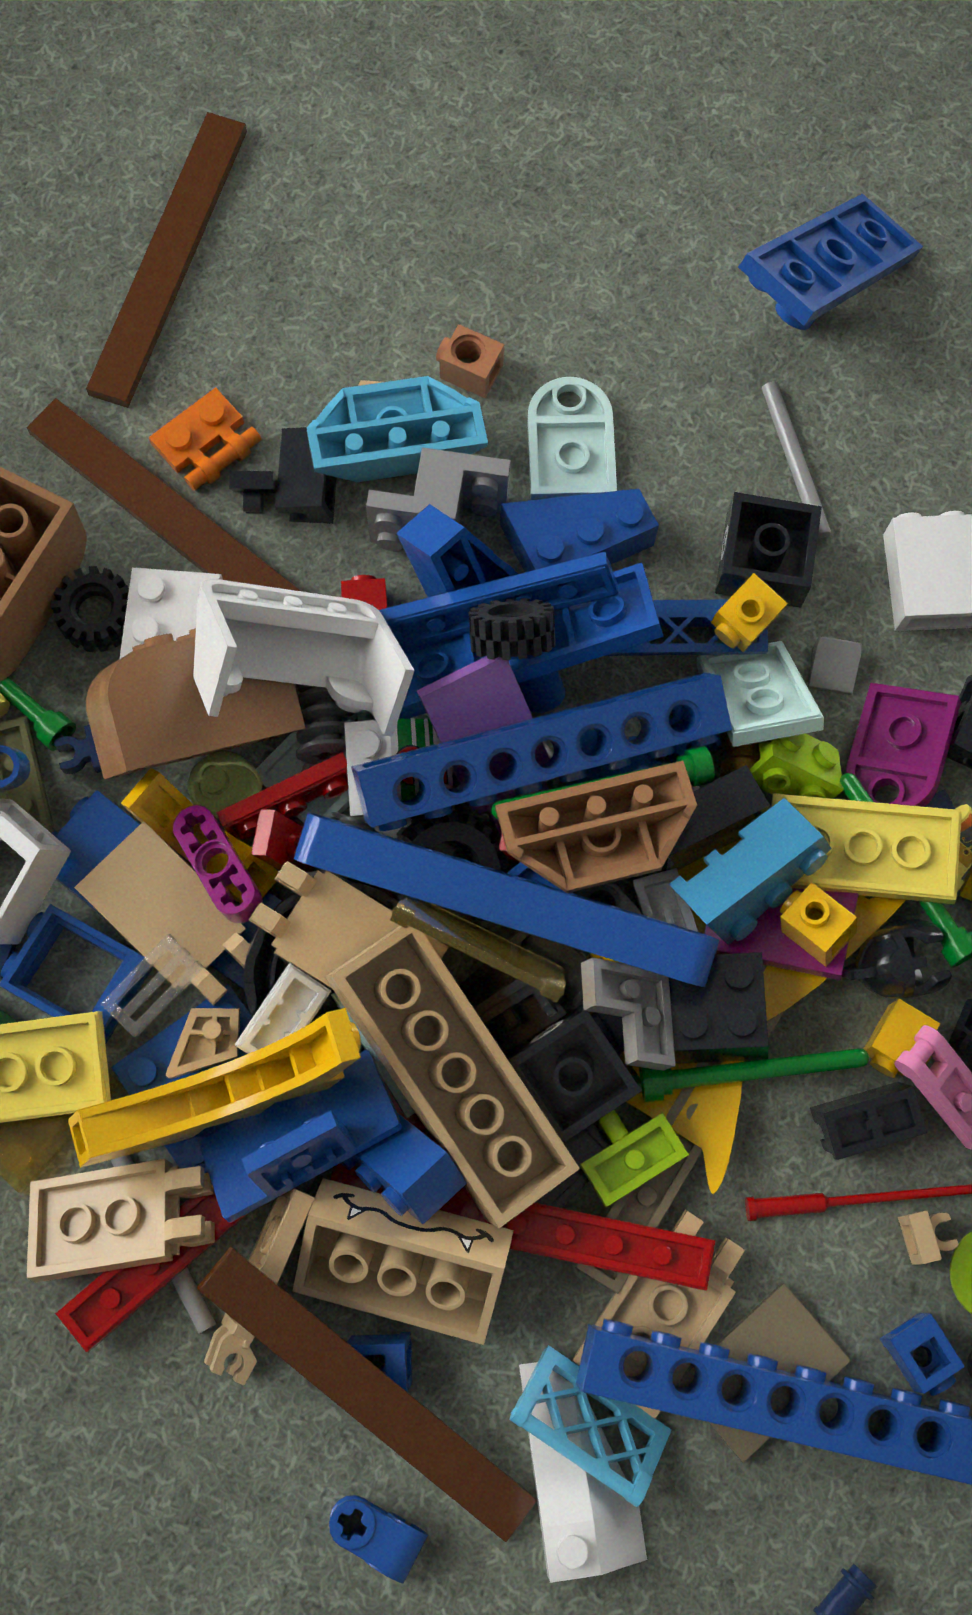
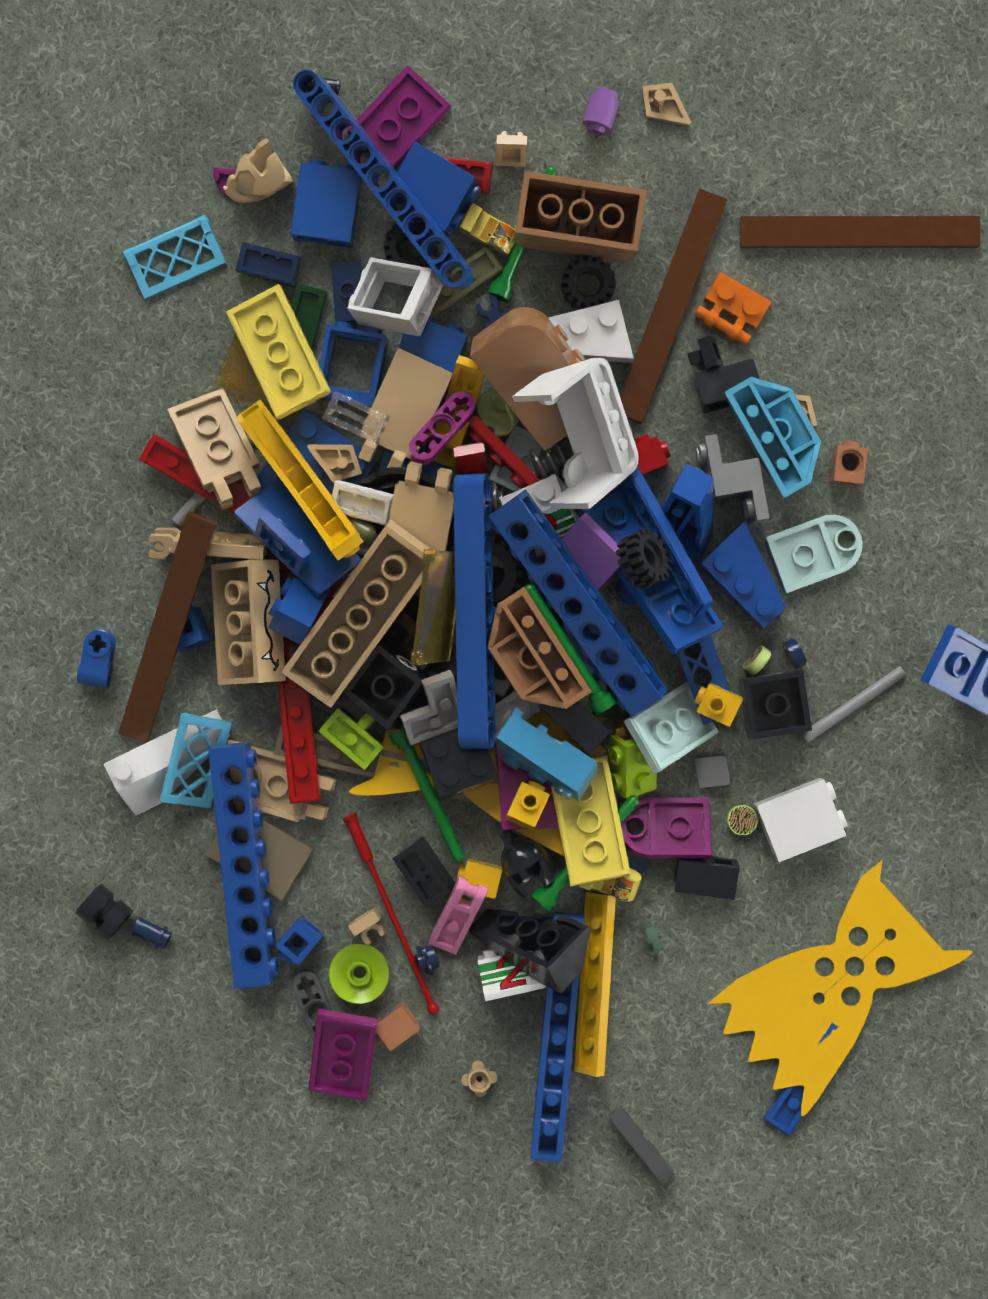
camera: 70 degrees right, 15 degrees up
(697, 557) = (757, 660): none -> yellowish green tile
(704, 506) = (794, 653): none -> dark blue tile
(914, 650) = (742, 819): none -> tile

